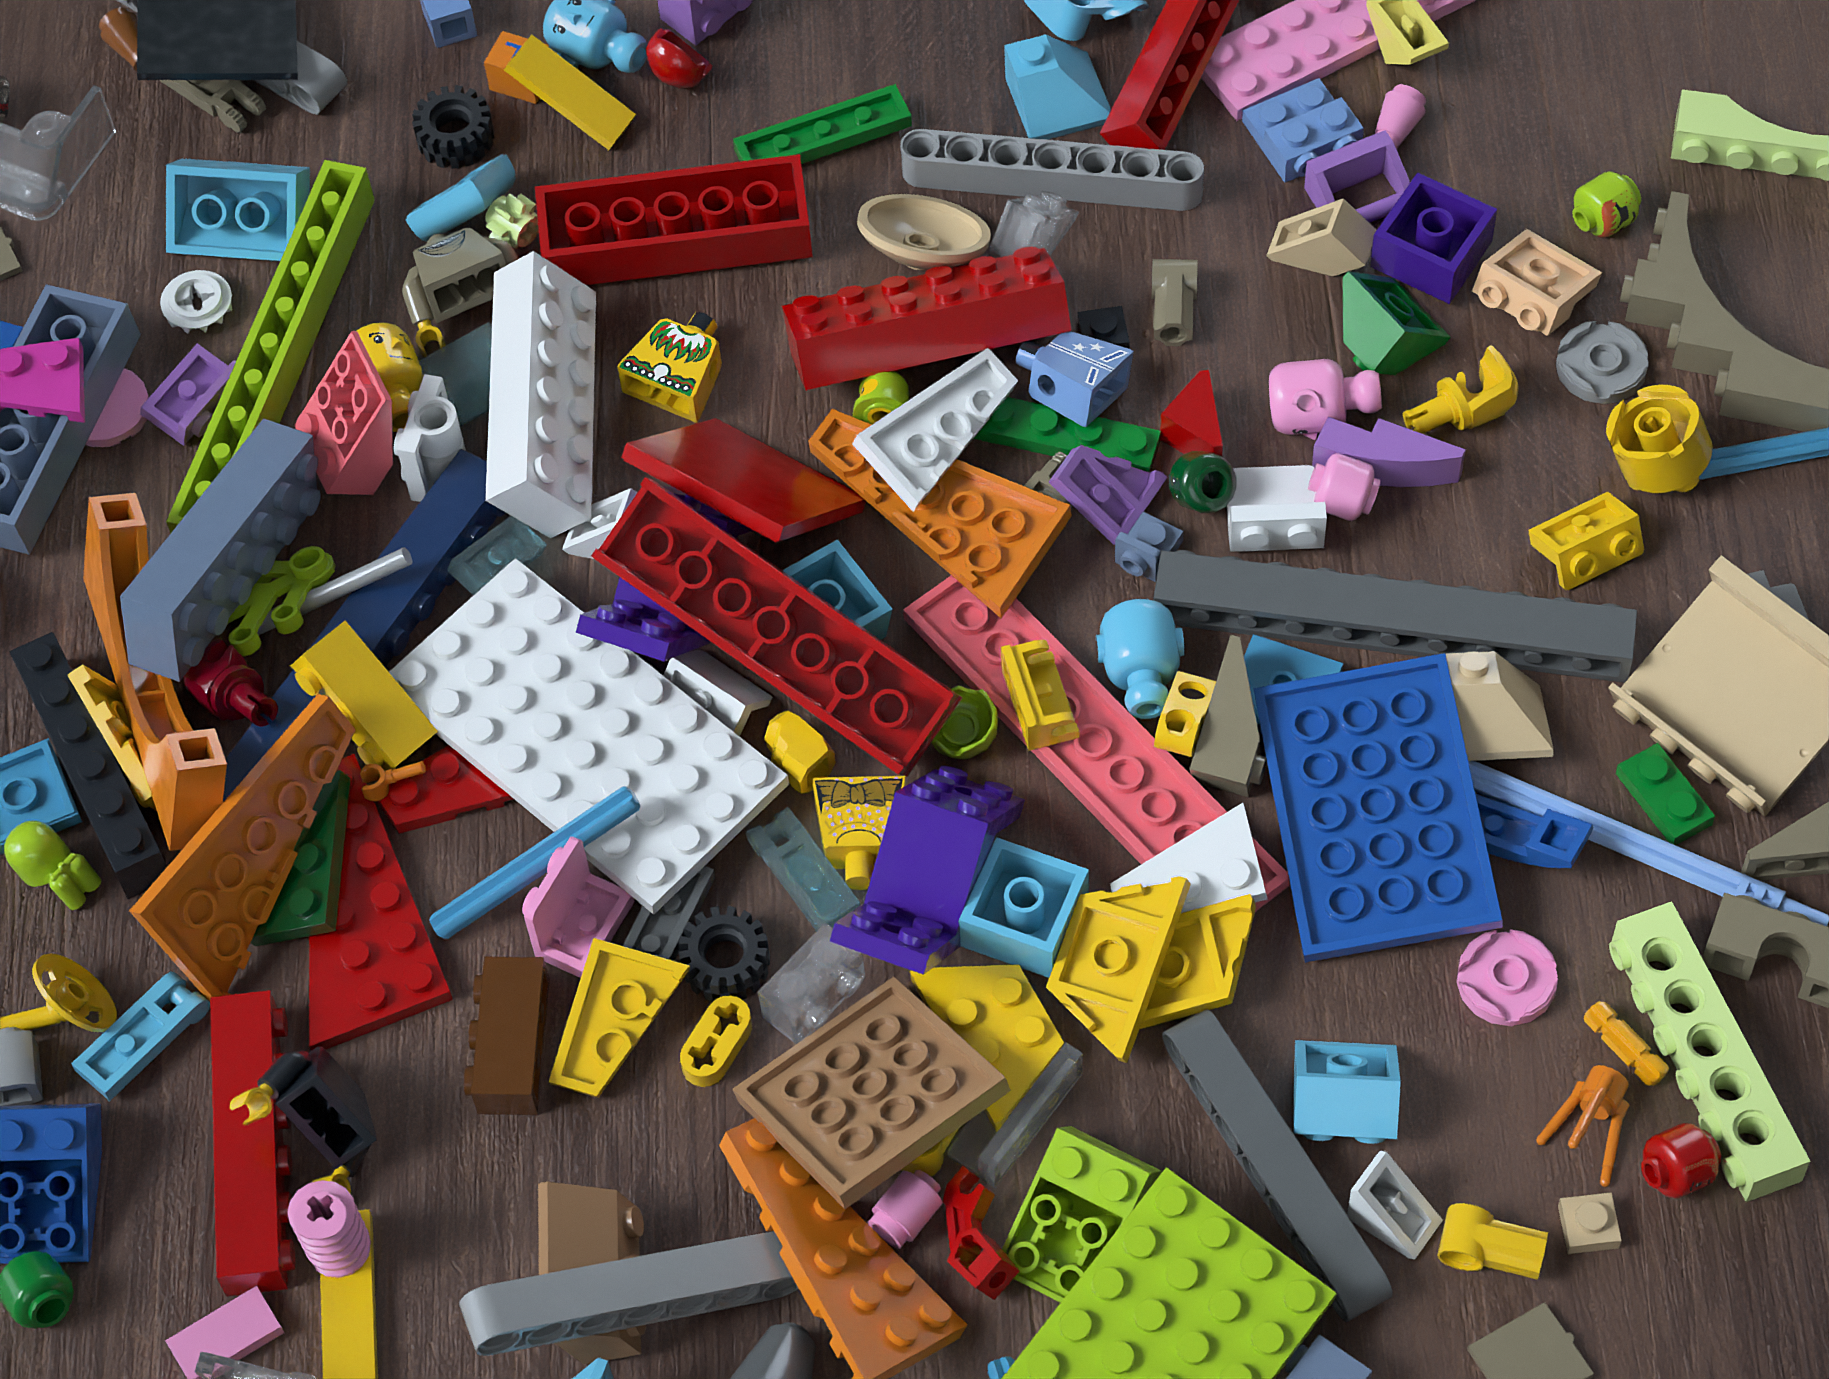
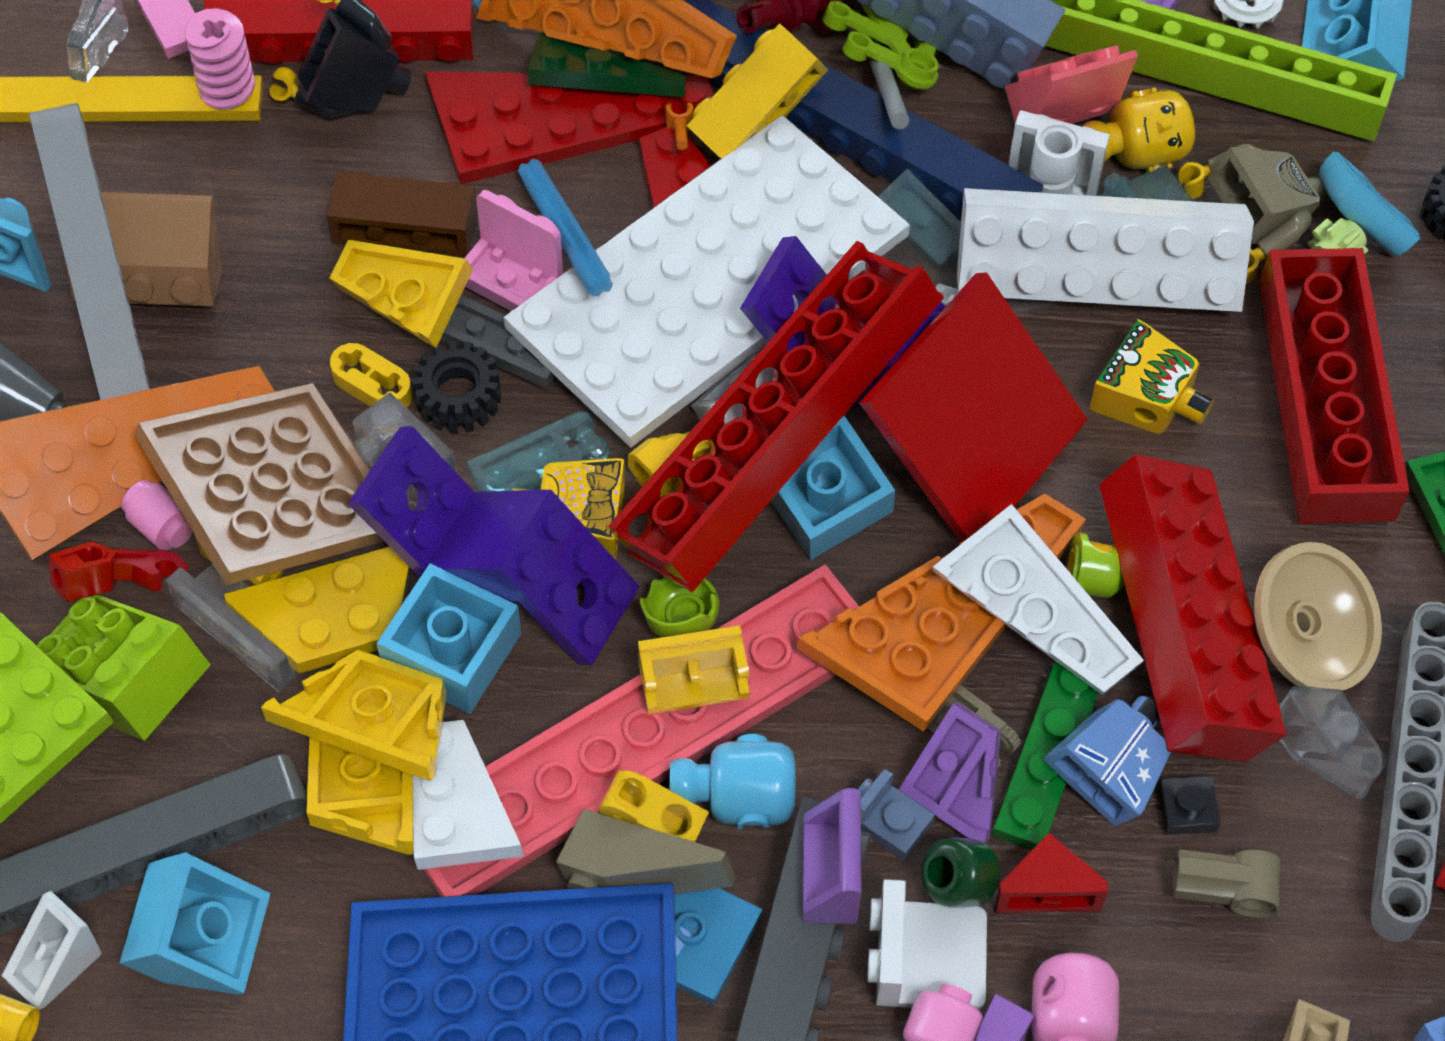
camera: 90 degrees right, 0 degrees up
(1224, 564) = (832, 859): none -> medium lavender tile

